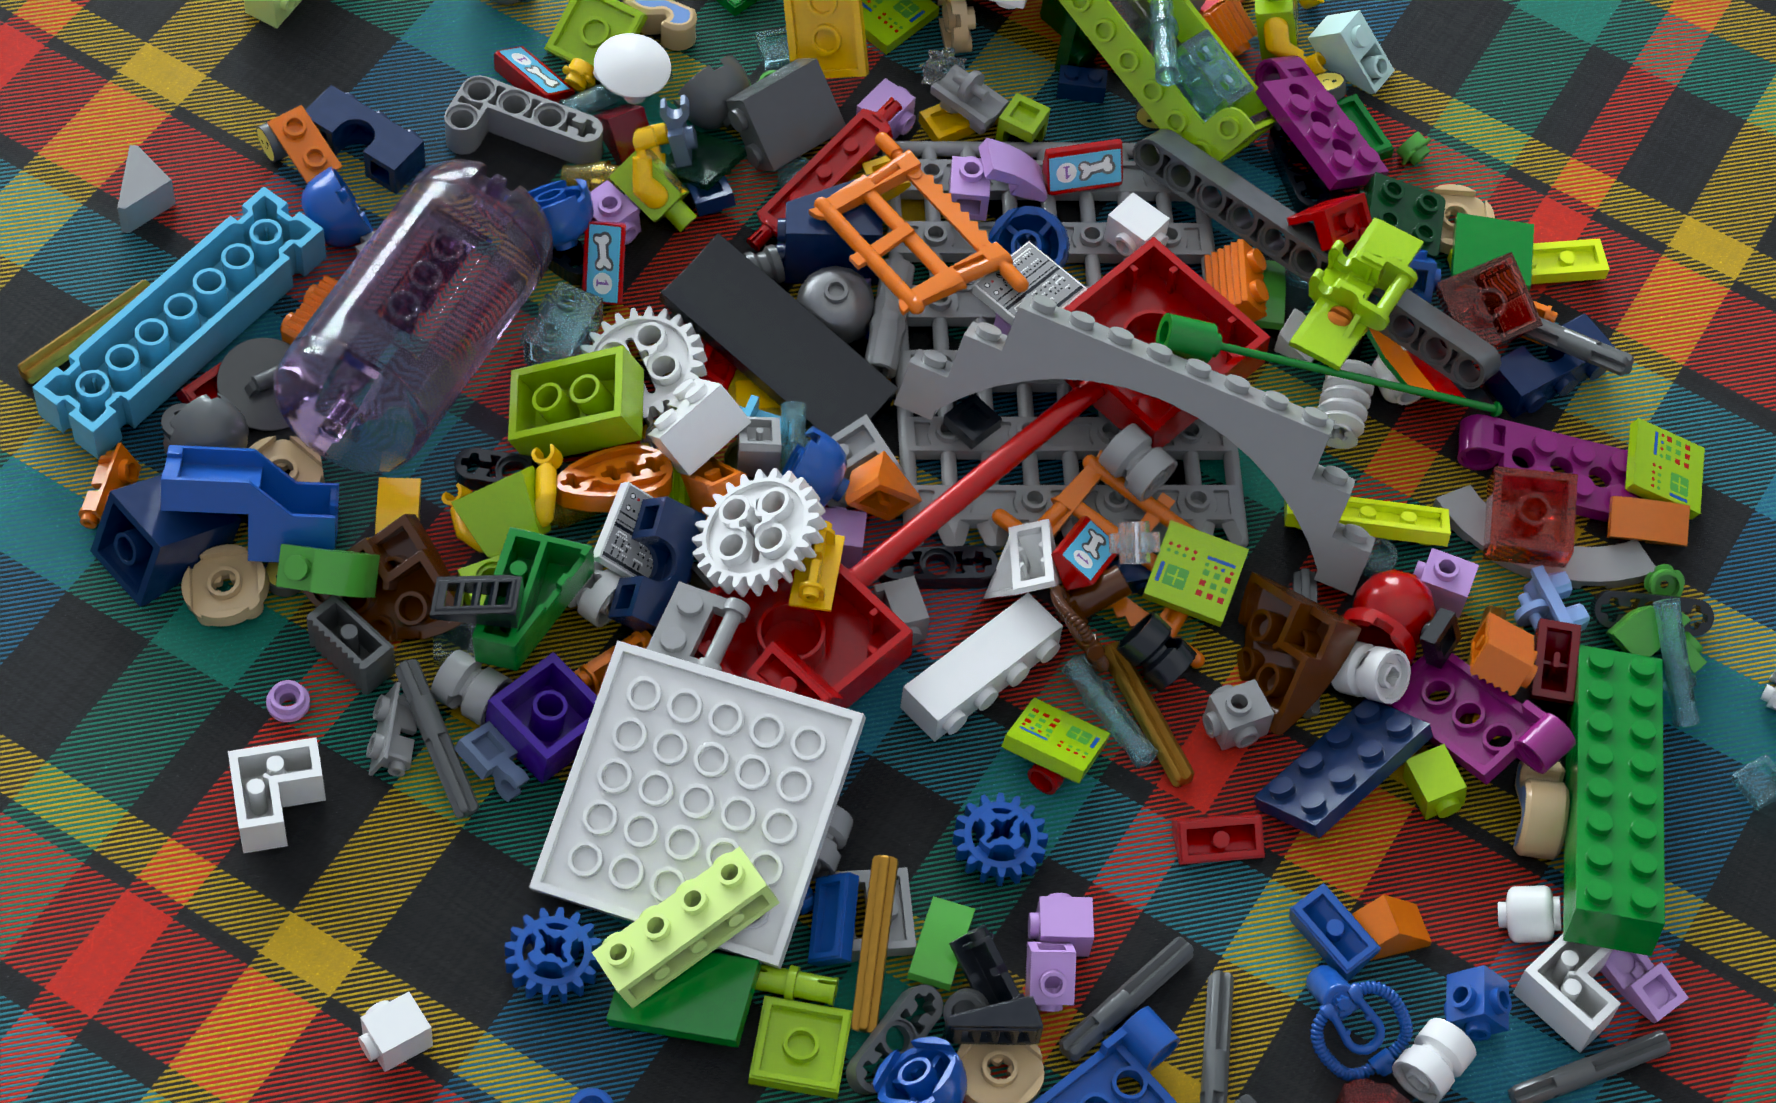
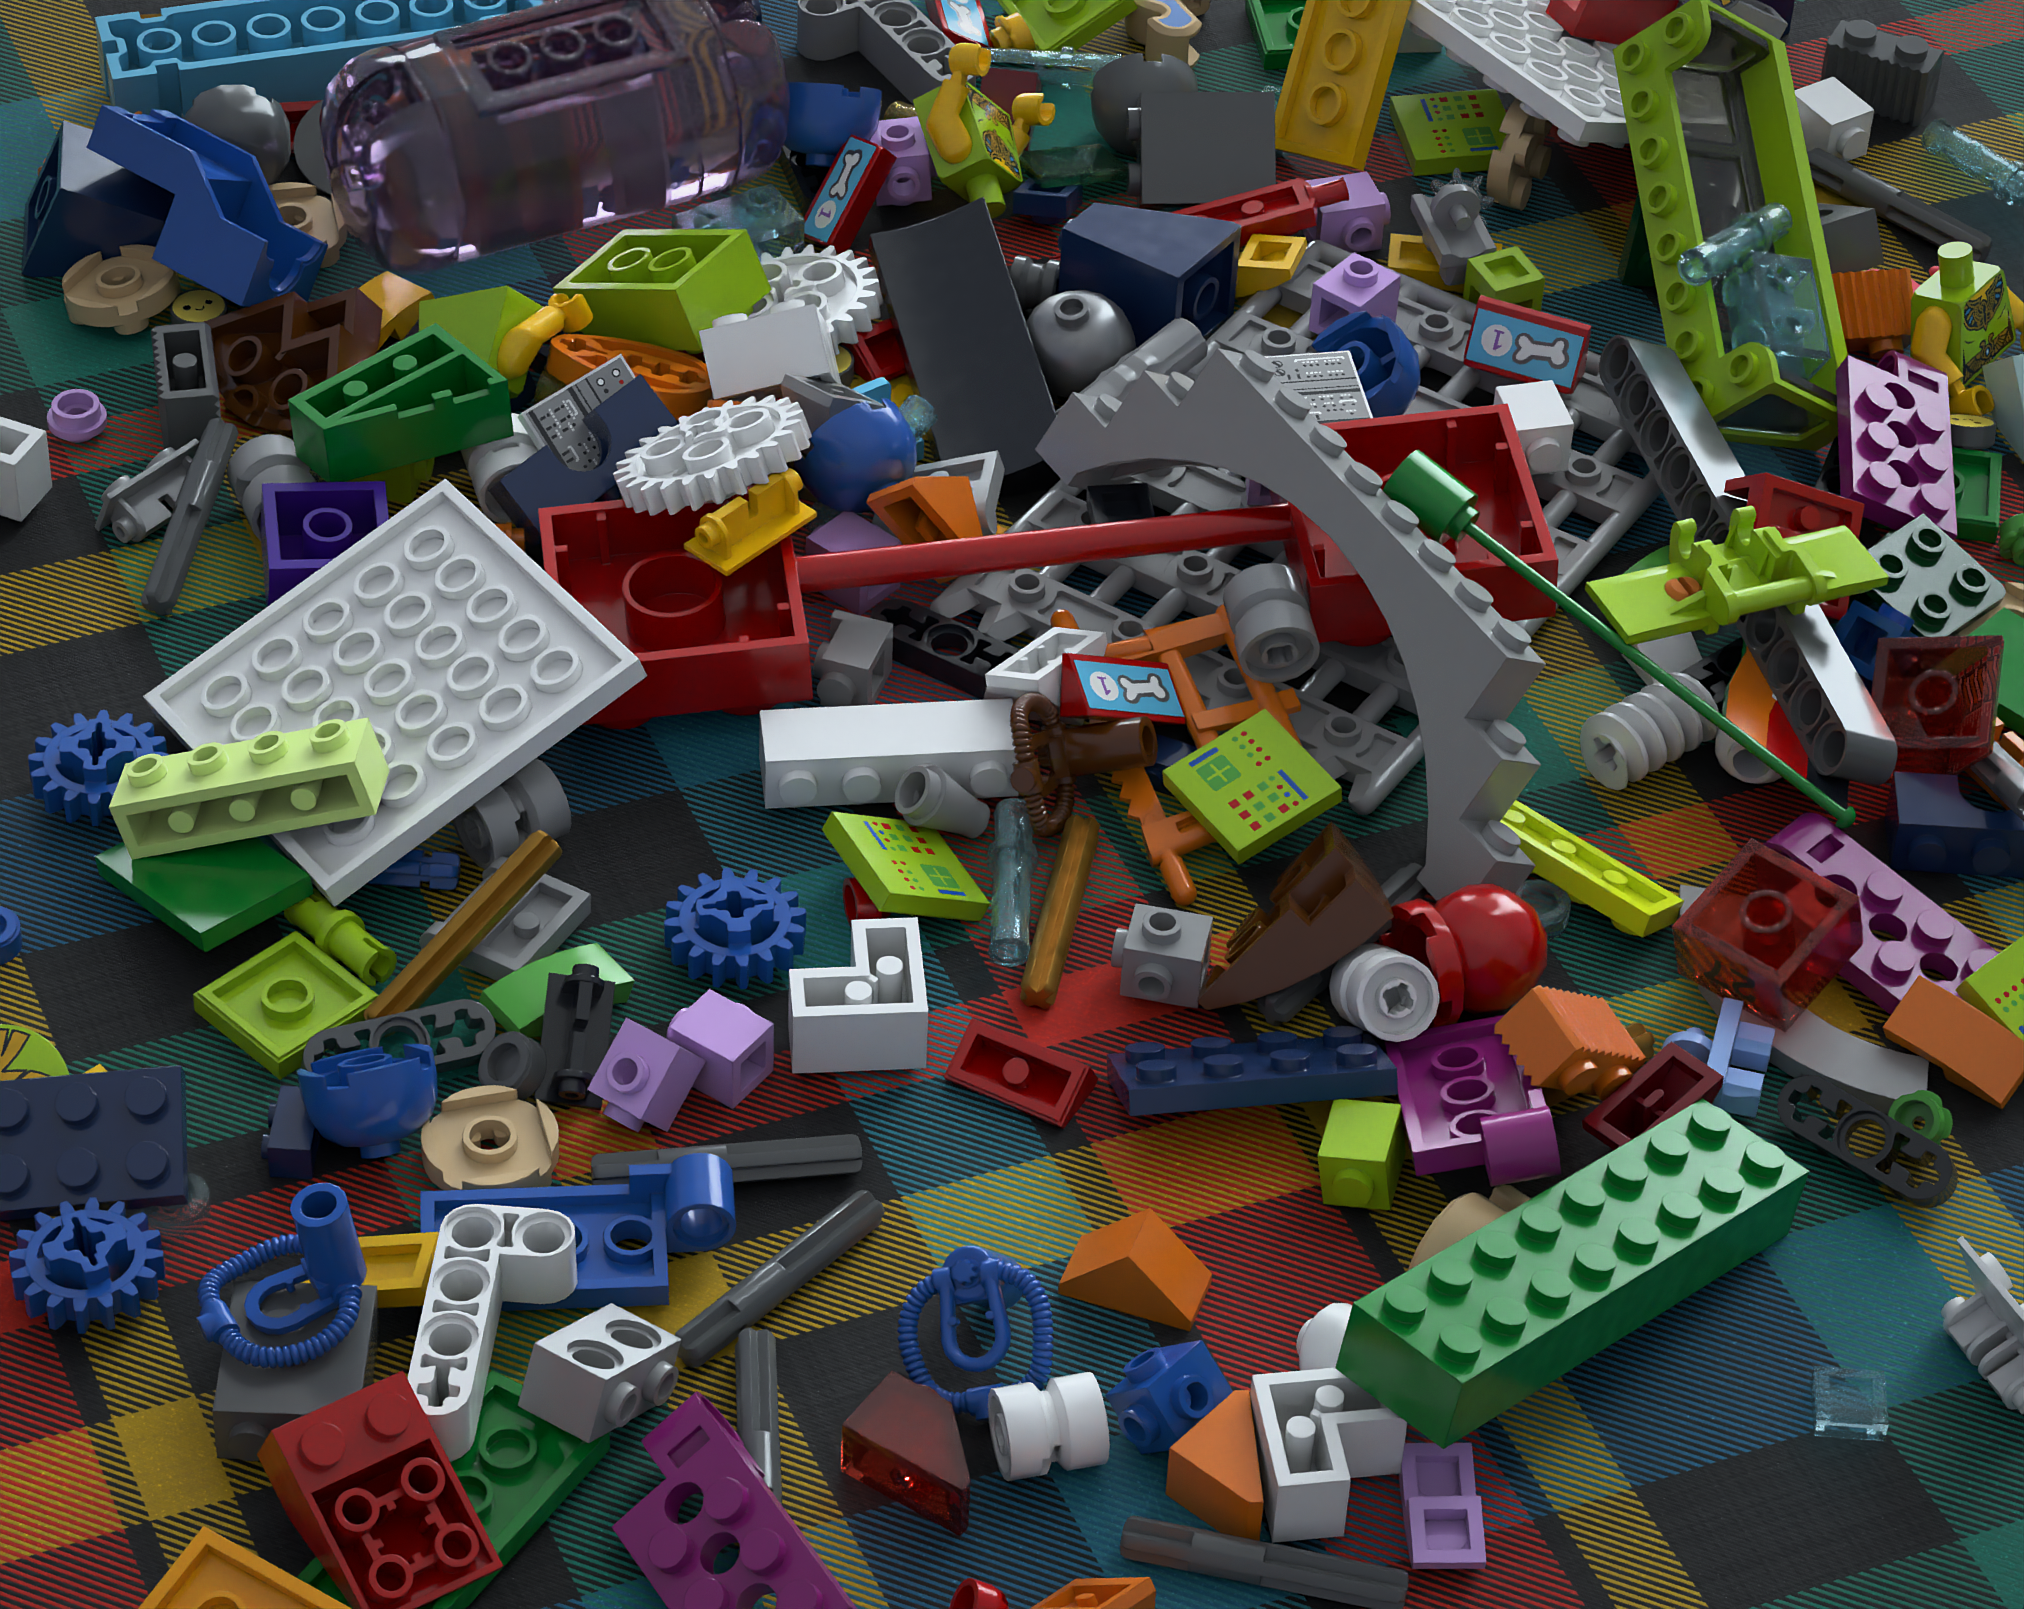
camera: 40 degrees right, 15 degrees down
(328, 571) = (224, 300): bright green brick -> none
(490, 614) = (338, 369): black slope -> none
(491, 754) = (234, 557): sand blue plate -> none
(632, 66) = (1066, 38): white dish -> none
(680, 136) = (1057, 117): sand blue plate -> none
(688, 619) = (560, 517): light grey plate -> none
(787, 671) = (622, 606): red slope -> none
(833, 919) = (445, 894): blue tile -> none
(946, 280) = (1202, 334): orange piece -> none
(998, 1024) = (516, 1075): black slope -> none
(1014, 167) = (1438, 314): lavender slope -> none
(1037, 686) = (938, 802): none -> light grey cone
(1081, 84) = (1628, 294): dark blue piece -> none
(1127, 844) = (863, 1012): none -> white brick
(1134, 542) = (1191, 704): clear gear -> none
(1156, 651) = (1124, 846): black wheel -> none
(1239, 277) = (1613, 541): orange brick -> none
(1333, 932) = (1059, 1228): blue slope -> none
(1440, 637) = (1500, 986): black plate -> none
(1447, 578) = (1599, 961): lavender brick -> none
(1535, 1029) = (1217, 1469): none -> orange slope
(1639, 635) = (1840, 1143): bright green brick -> none
(1676, 662) = (1823, 1196): clear light blue pin -> none

